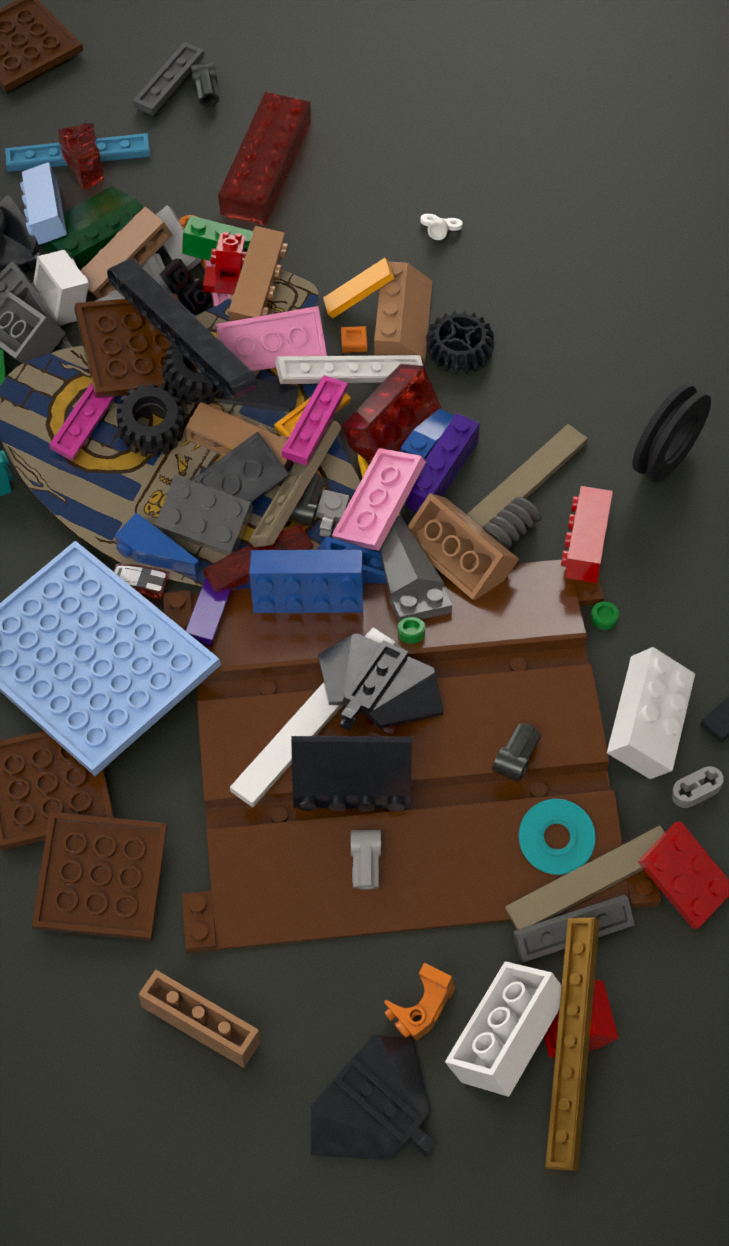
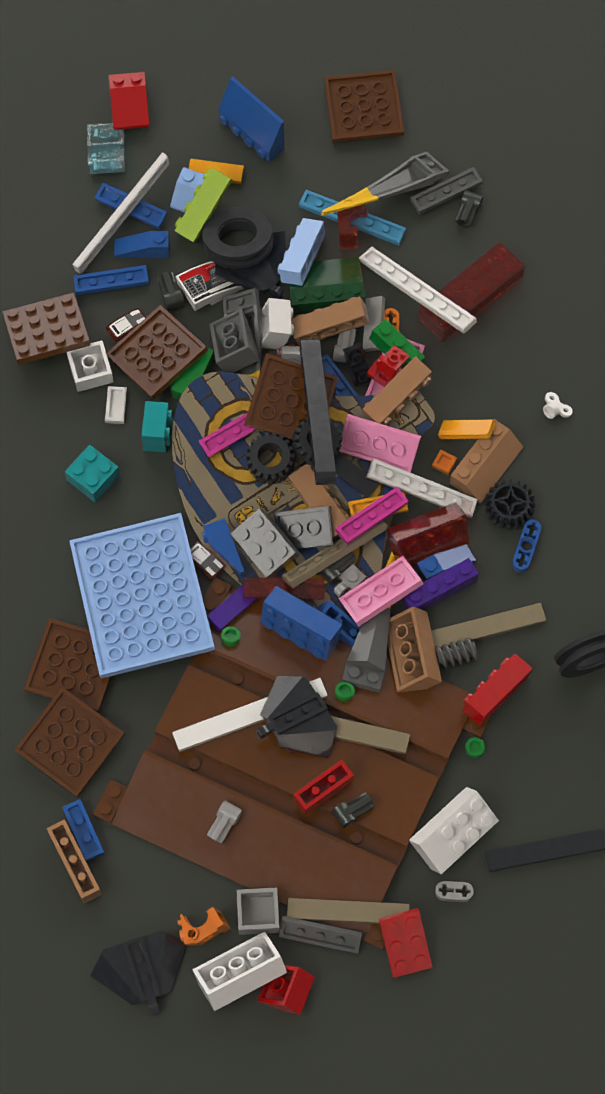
camera: 30 degrees right, 10 degrees up
(116, 79) = (413, 174): none -> dark grey plate
(185, 971) = (83, 830): none -> blue plate
(206, 177) = (418, 290): none -> white tile
(229, 642) = (230, 636): none -> green tile
(351, 772) = (242, 769): black slope -> none
(465, 745) = (323, 787): none -> red brick
(478, 942) = (257, 911): none -> light grey piece
(481, 659) = (371, 735): none -> dark tan tile
(507, 385) = (520, 551): none -> blue beam
(553, 860) = (349, 890): teal piece -> none
(572, 1044) = (270, 1002): pearl gold tile -> none

